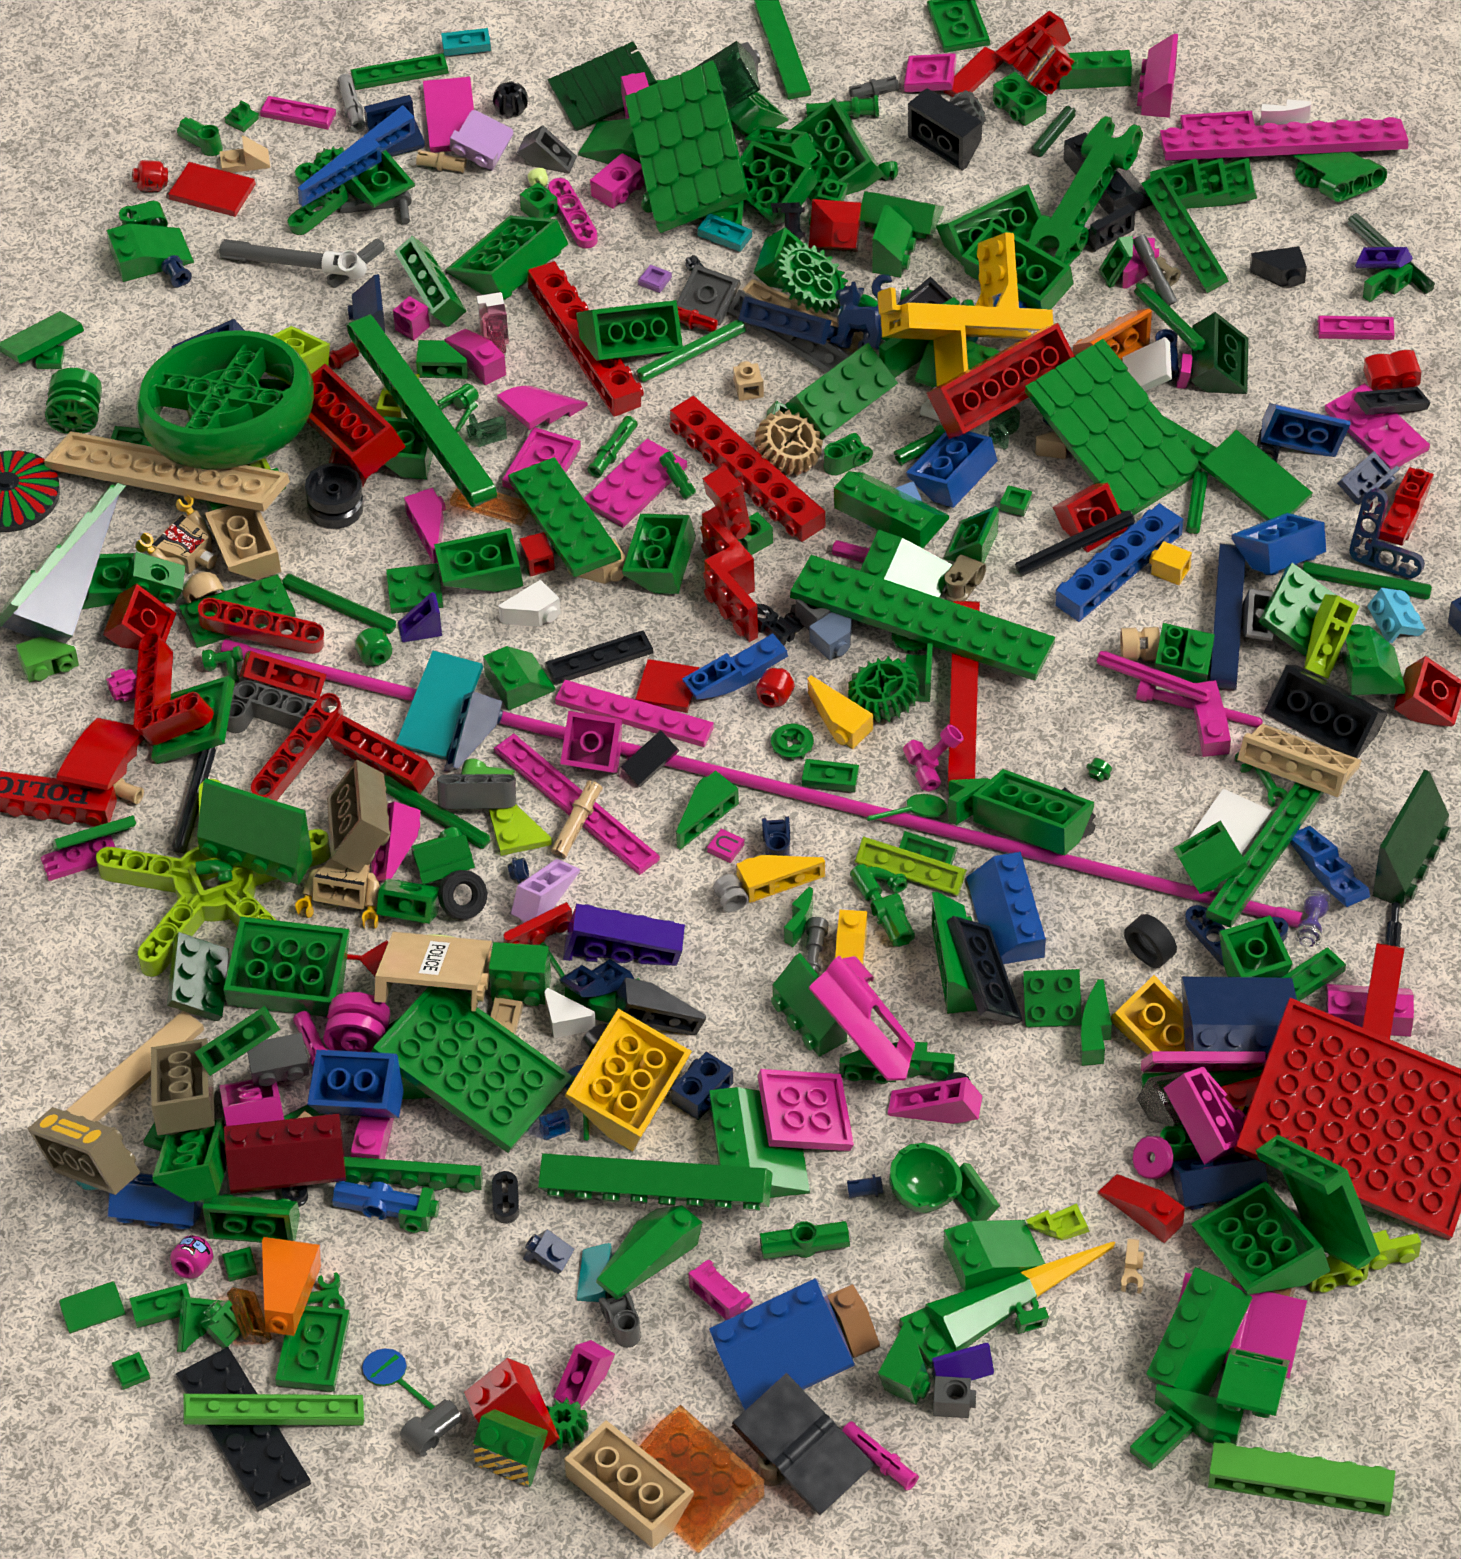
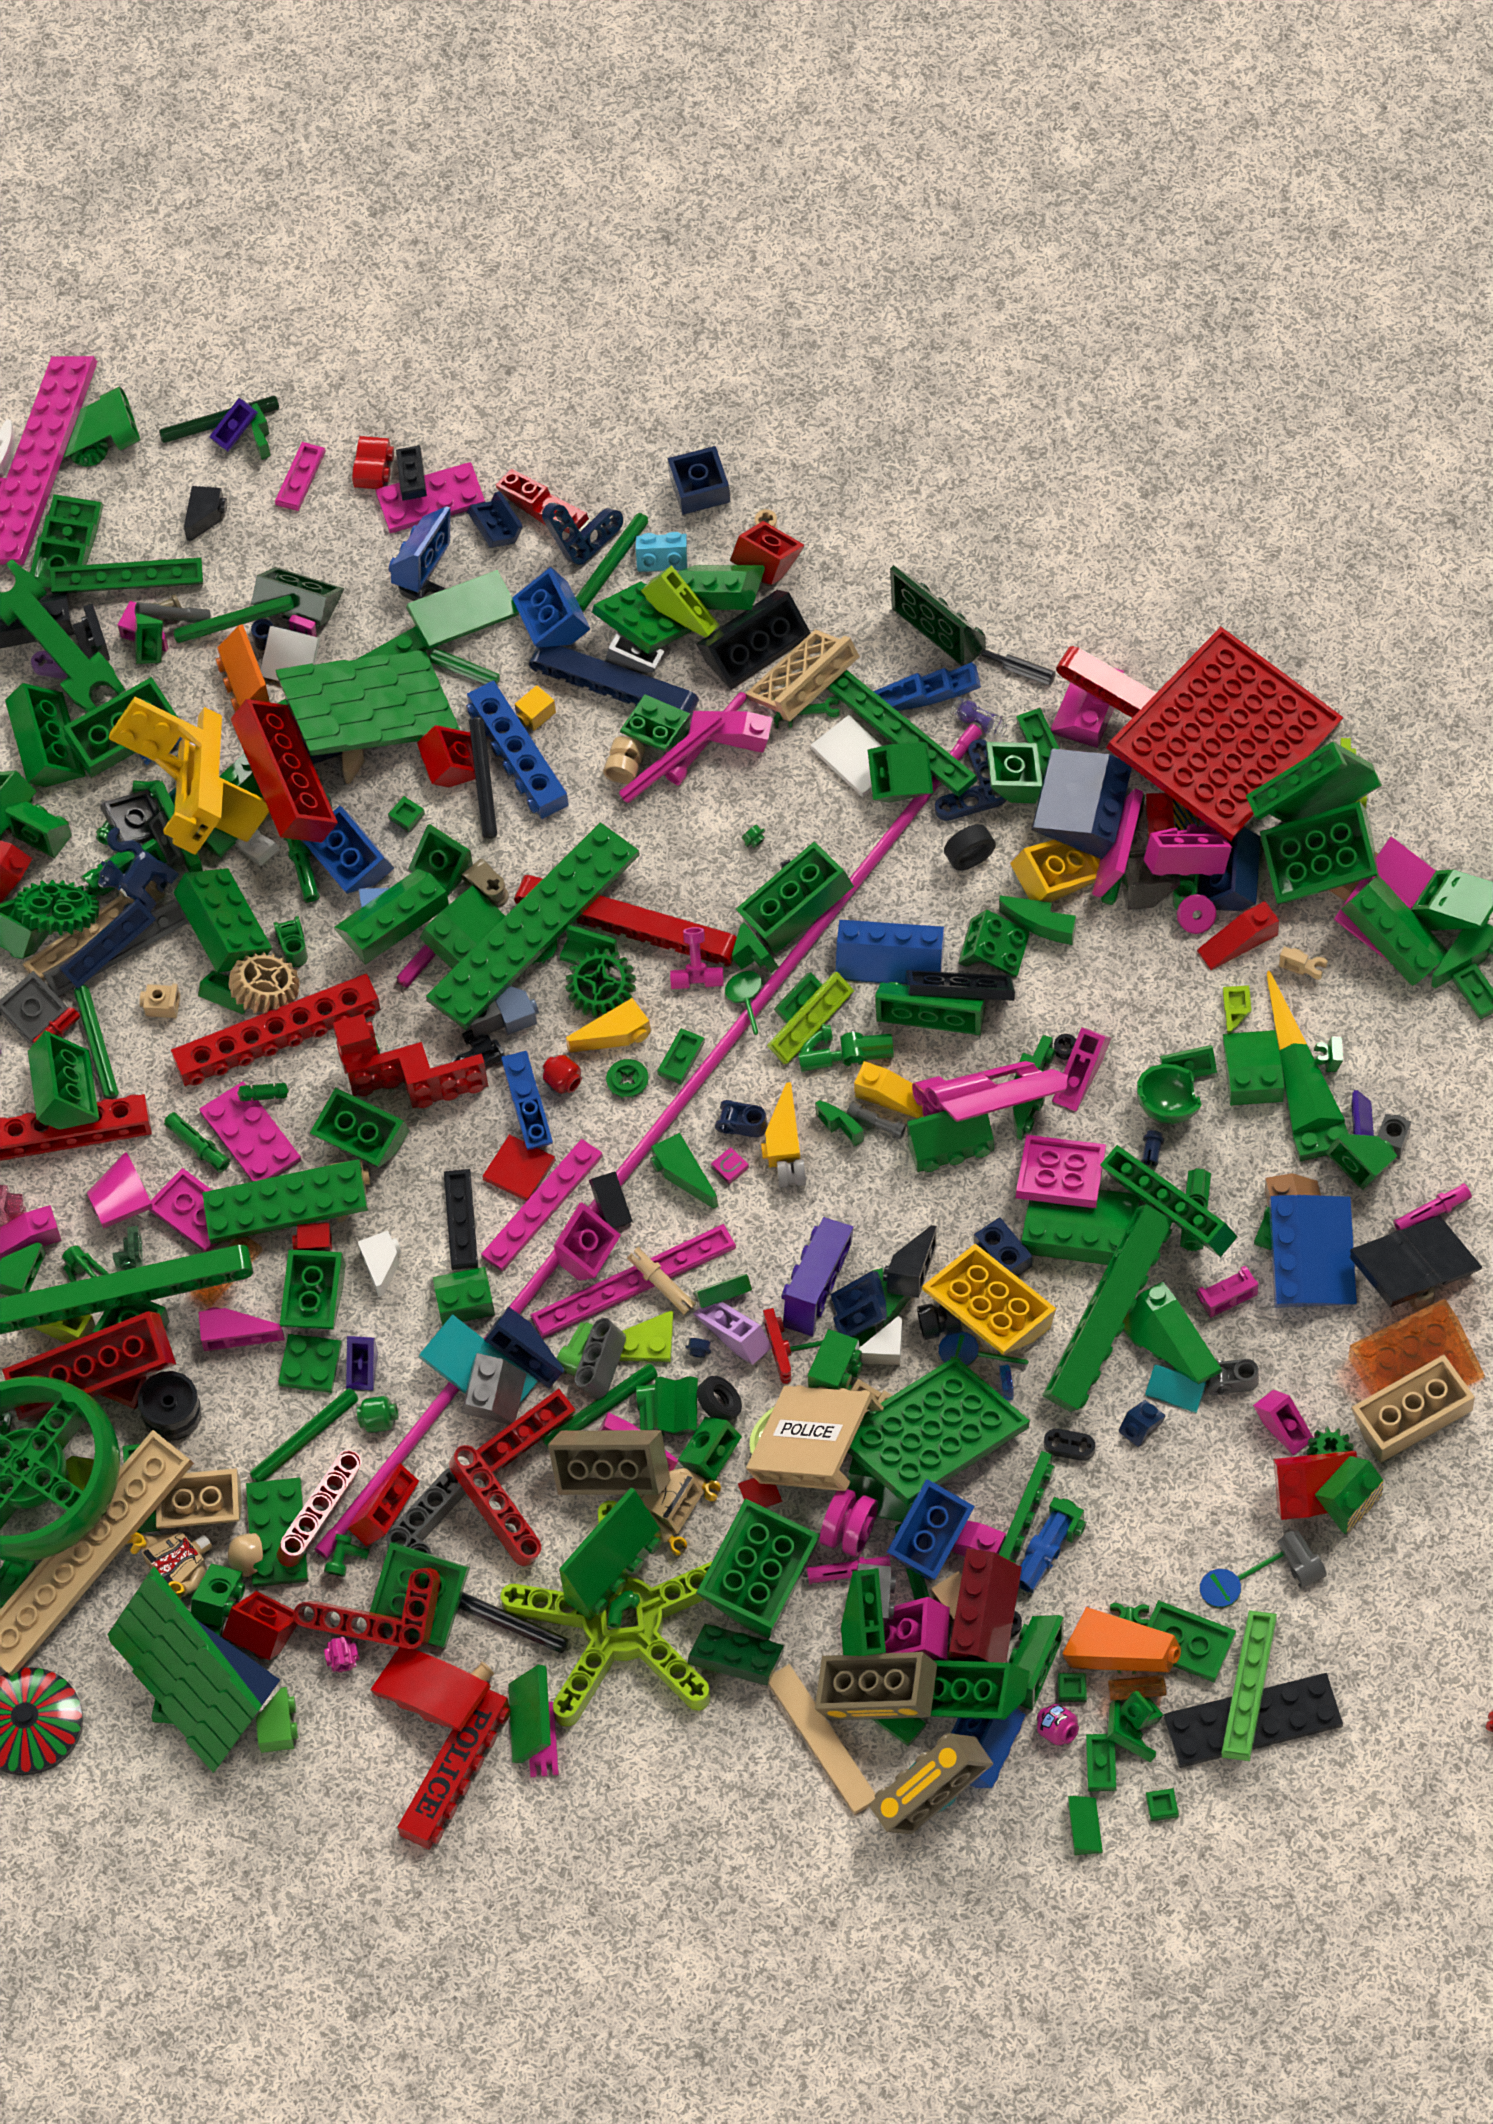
camera: 70 degrees left, 10 degrees up
(416, 716) = (493, 1390): none -> flat silver slope
(584, 871) = (723, 1290): none -> green slope
(789, 1199) = (1169, 1200): none -> green brick

